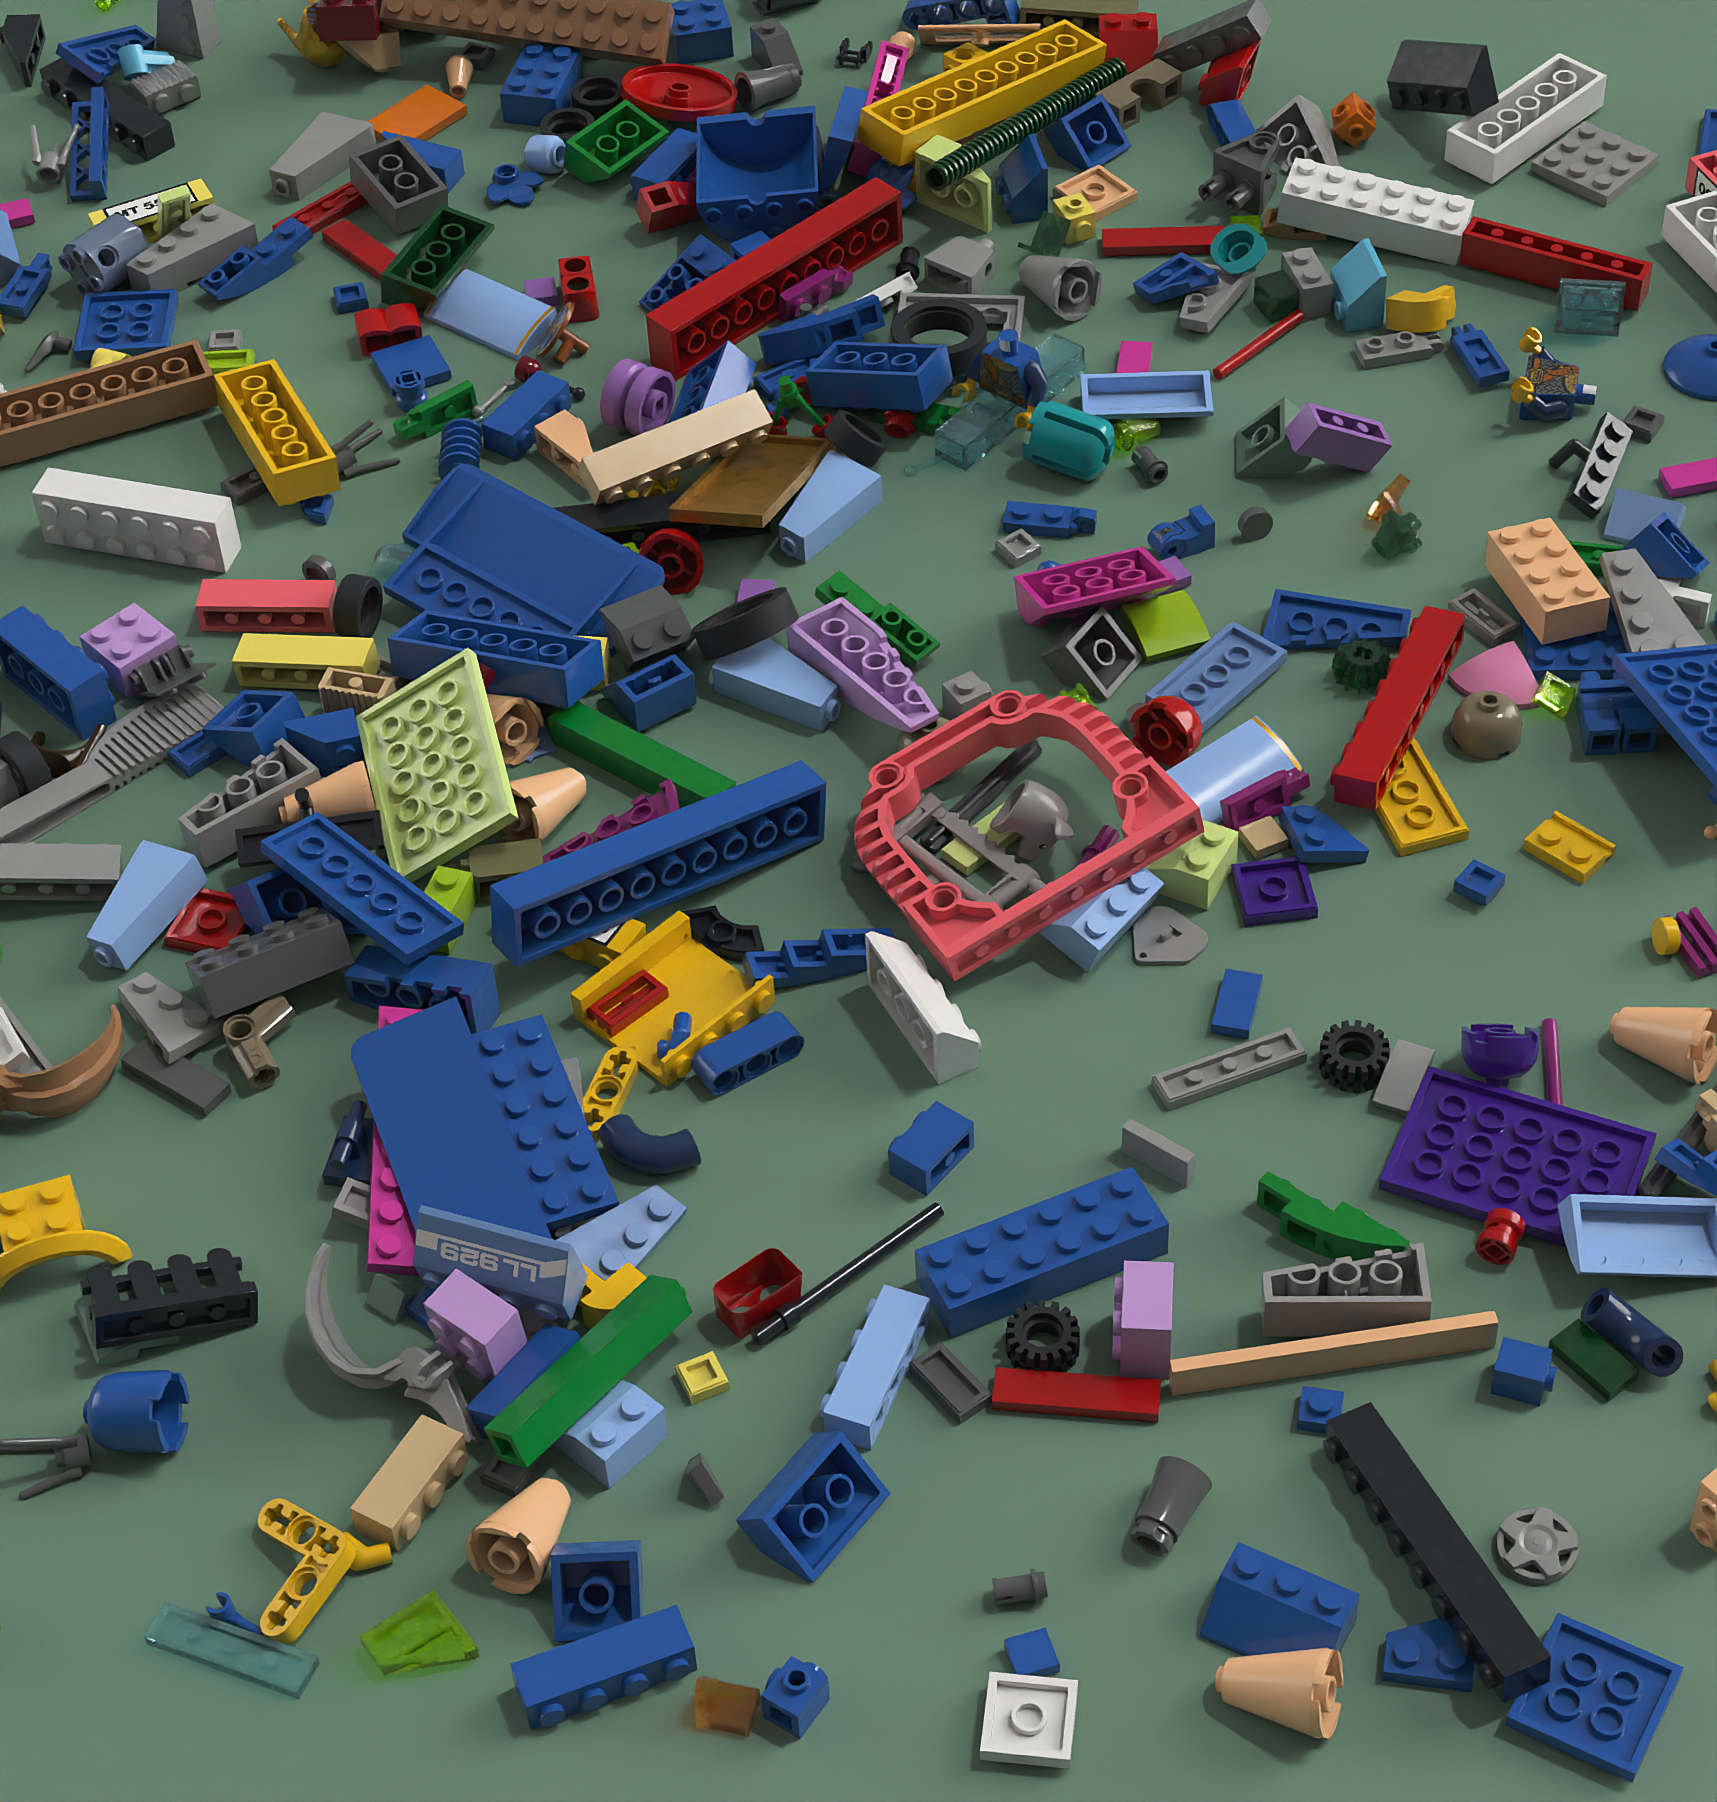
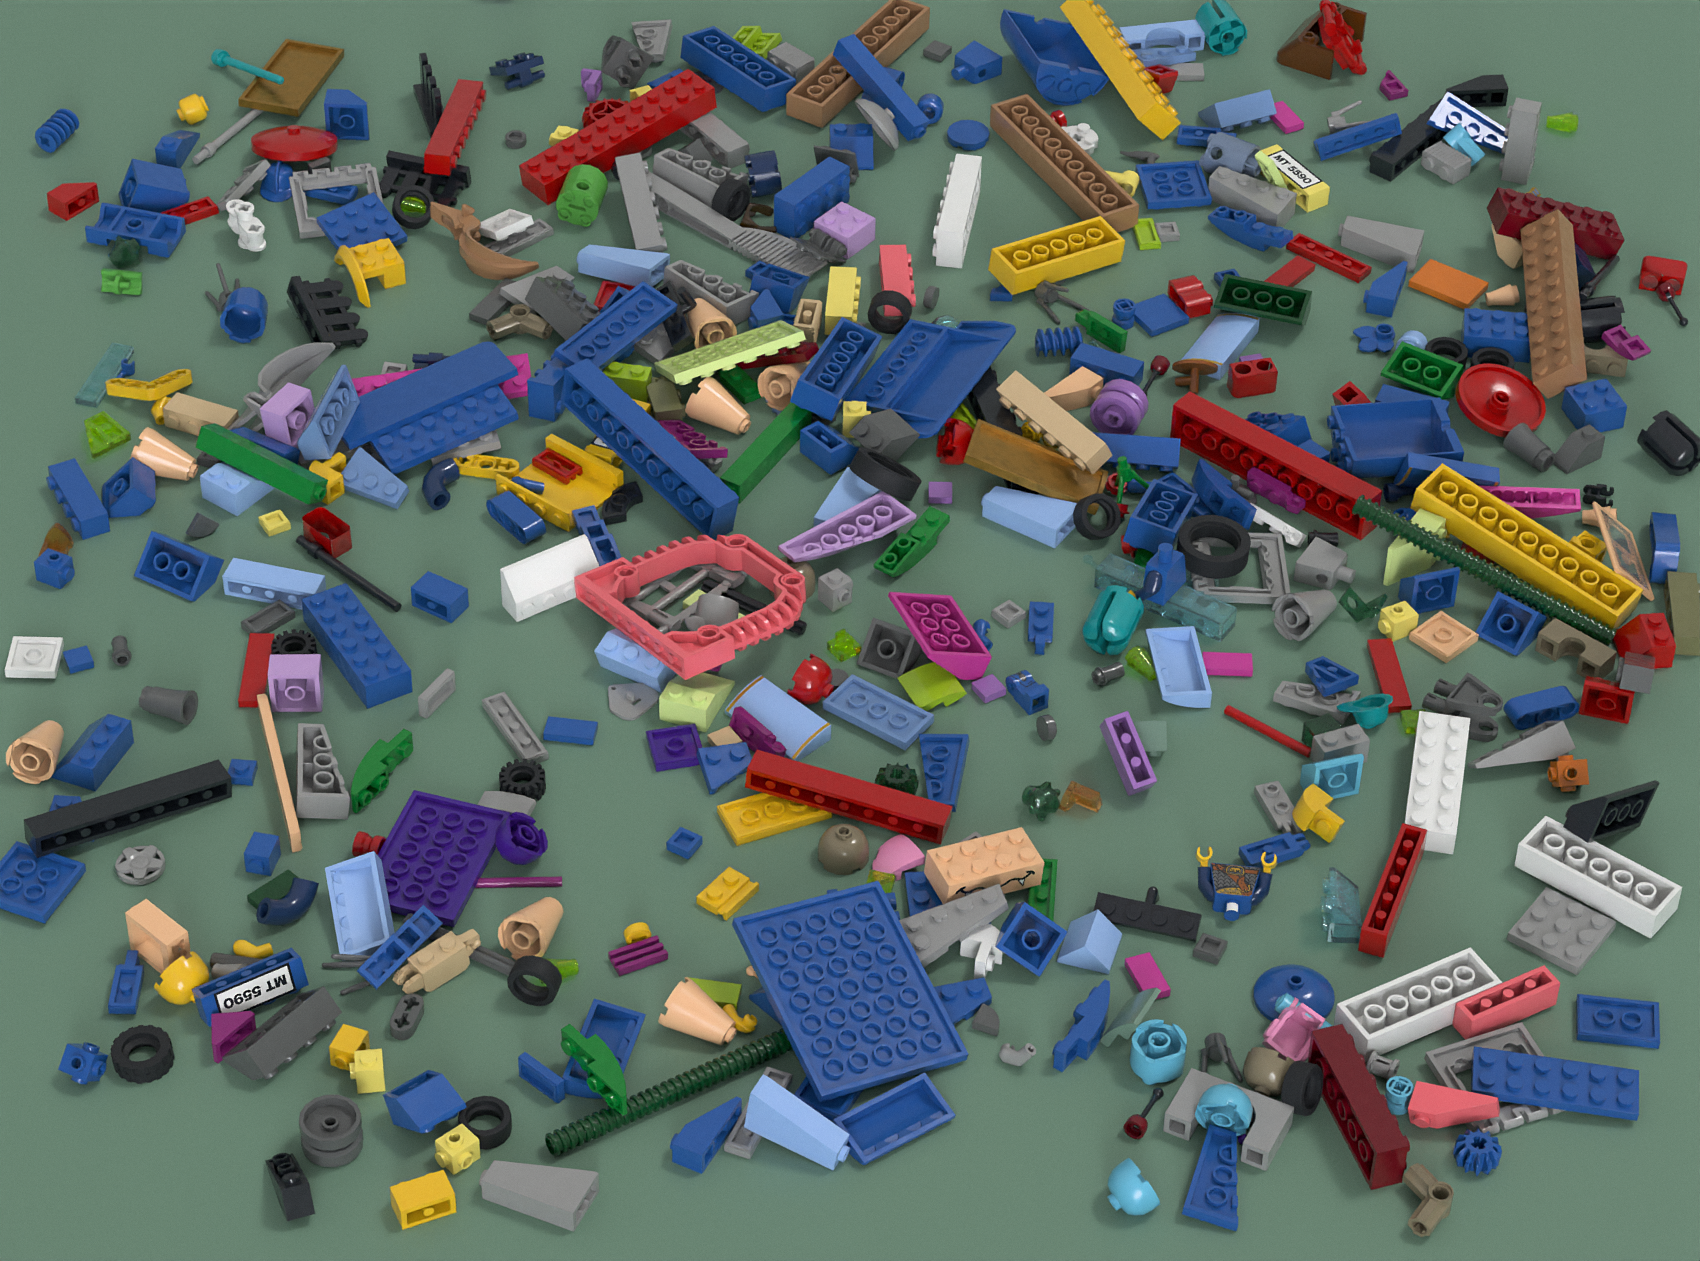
camera: 80 degrees right, 5 degrees down
(397, 183) = (1343, 275): dark grey brick -> none
(508, 384) = (1147, 361): light grey hinge -> none

